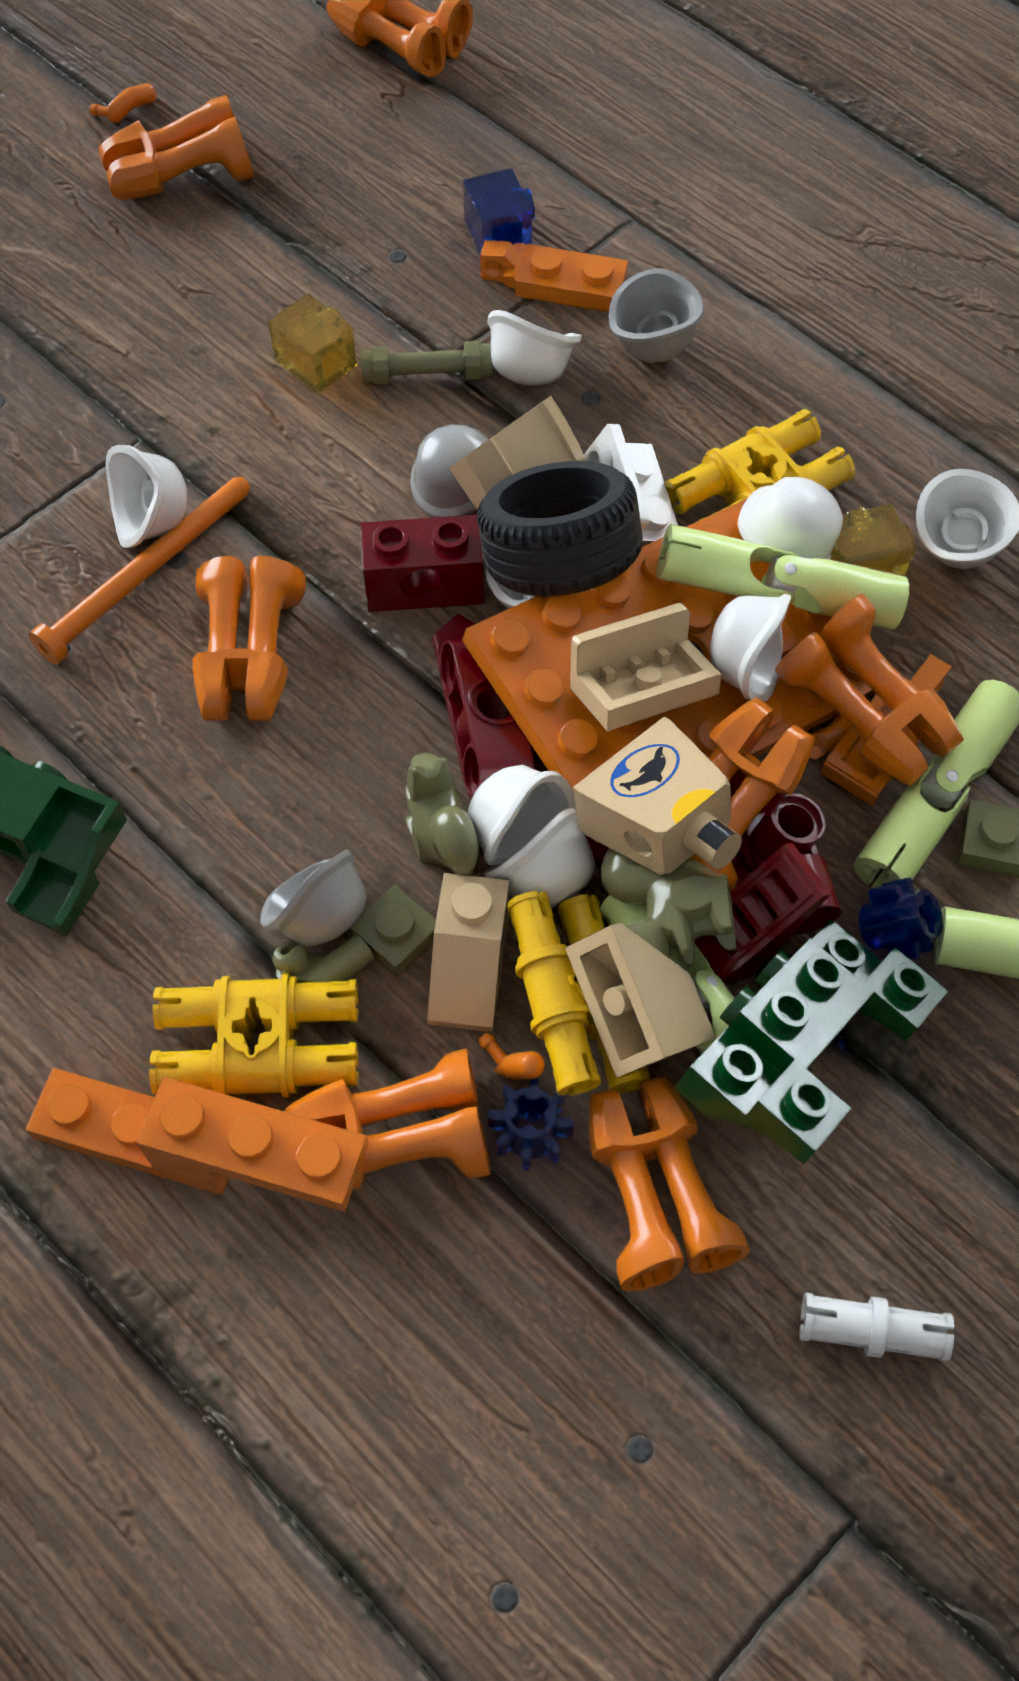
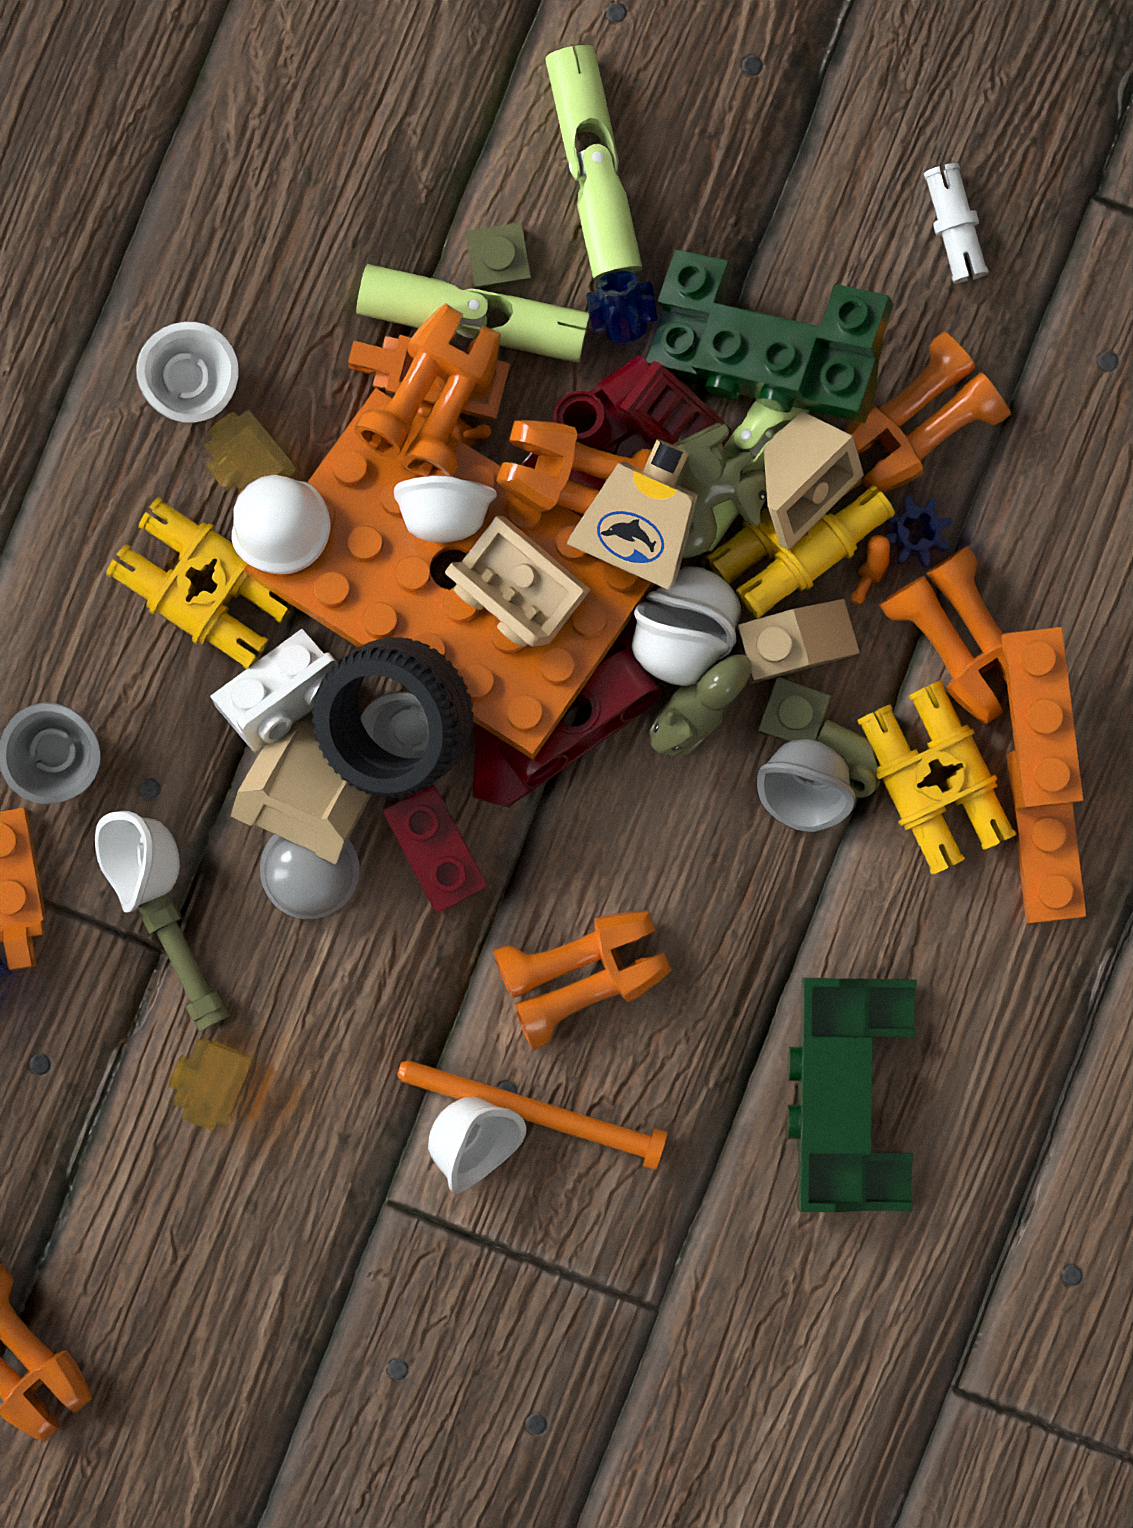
camera: 120 degrees left, 25 degrees up
(814, 584) = (341, 474): yellowish green piece -> none

